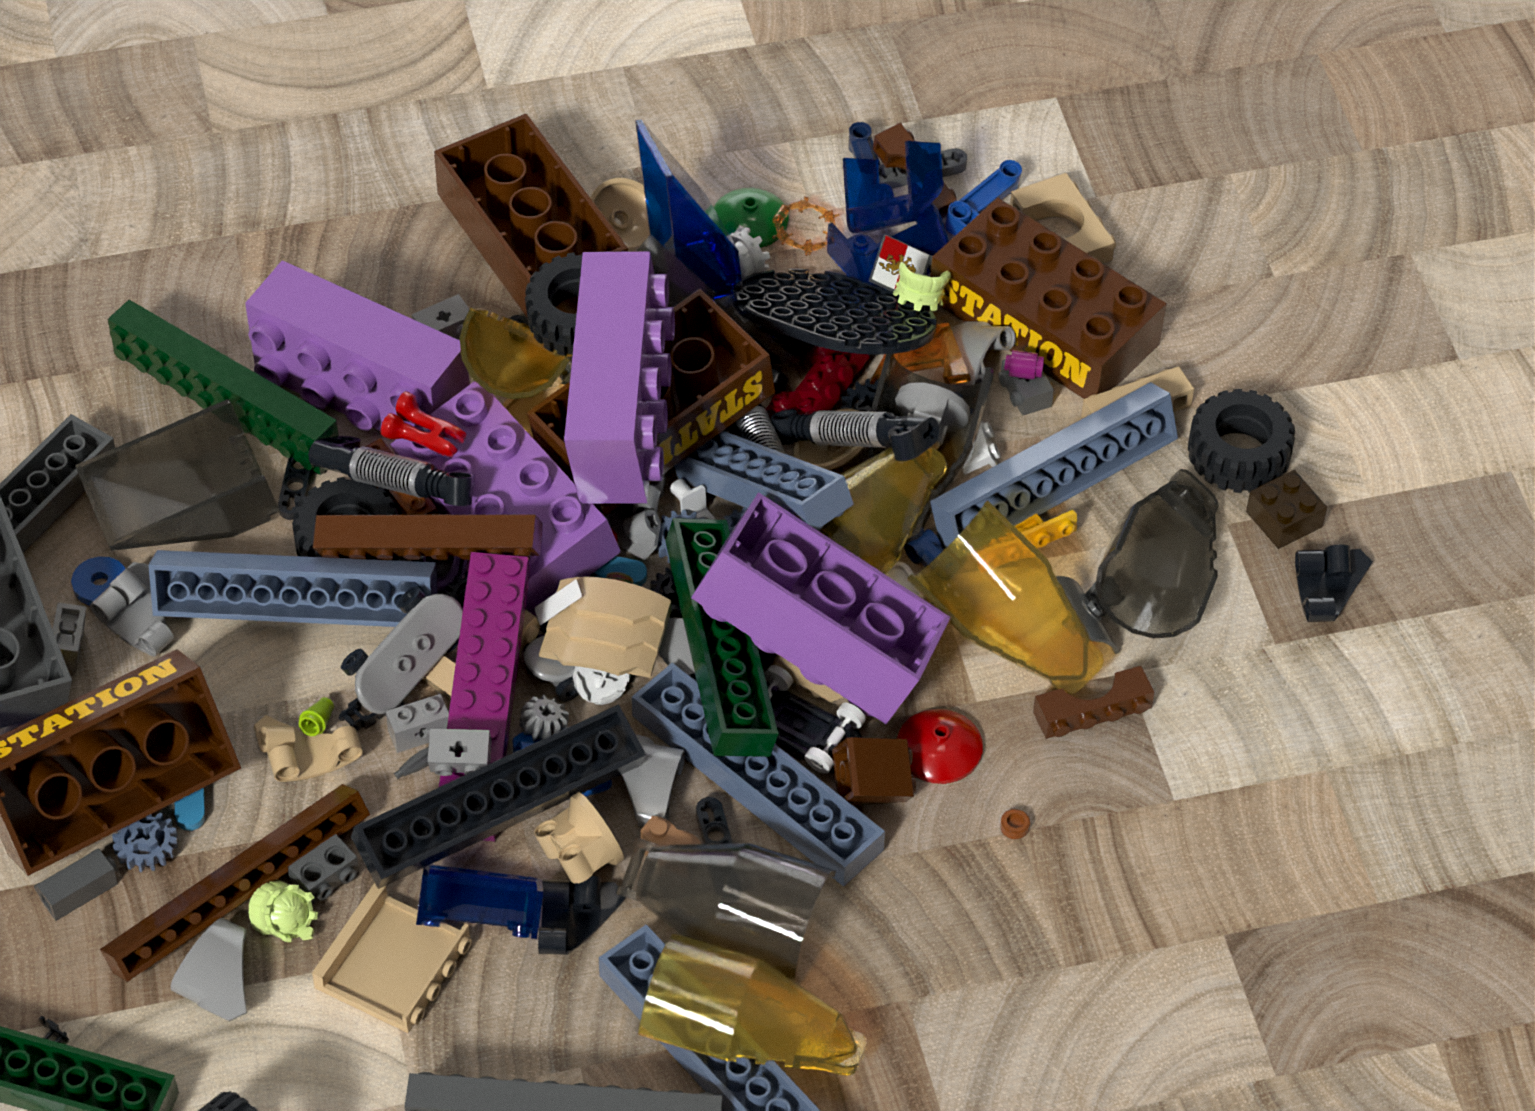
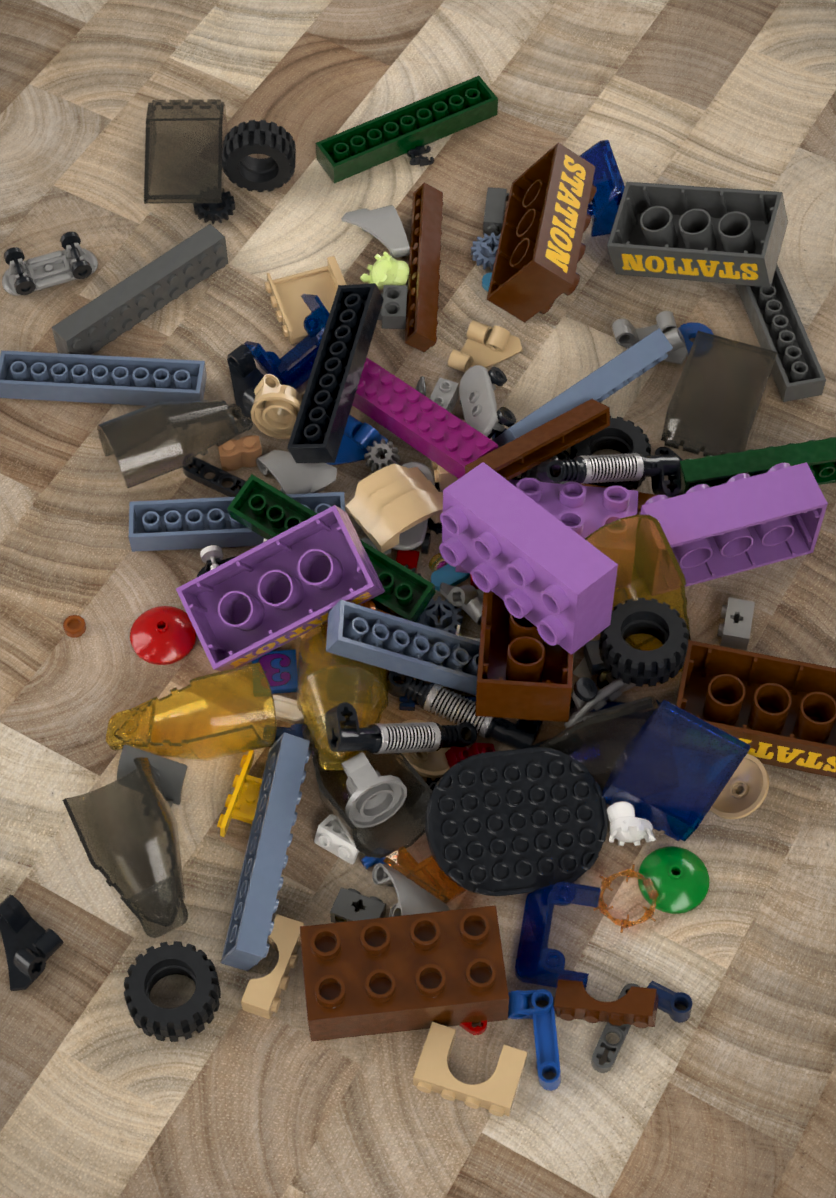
camera: 135 degrees right, 5 degrees up
(69, 631) = (660, 292): light grey brick -> none
(315, 718) = (494, 359): lime cone -> none
(408, 410) = (627, 489): red piece -> none
(445, 746) = (382, 371): light grey brick -> none
(558, 602) = (435, 491): white sticker -> none
(745, 1009) = (98, 392): clear yellow windscreen -> none
(873, 205) = (583, 948): clear blue windscreen -> none
(874, 771) = (170, 563): reddish brown slope -> none
(890, 255) = (522, 911): flag -> none
(920, 288) = (486, 888): yellowish green hair -> none
(1024, 364) = (361, 901): magenta brick -> none
(1062, 713) = (80, 752): reddish brown arch -> none
(1286, 509) = (98, 971): dark brown brick -> none

